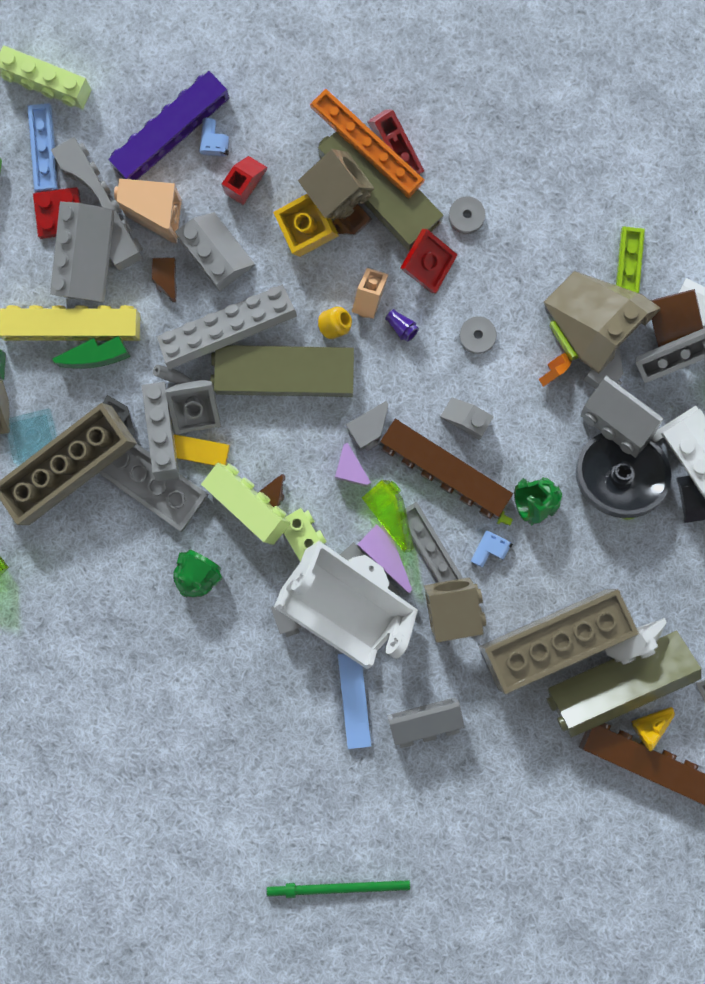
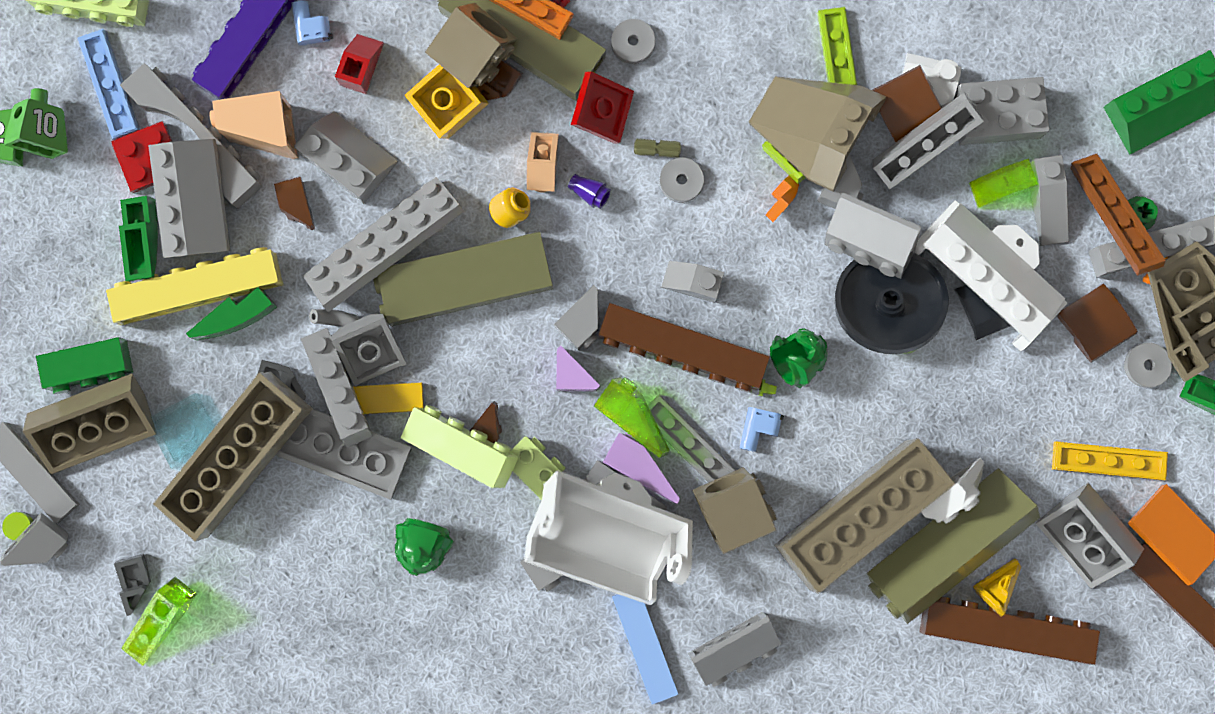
camera: 20 degrees left, 0 degrees up
(35, 274) = (139, 237): none -> green slope
(459, 303) = (651, 147): none -> olive piece

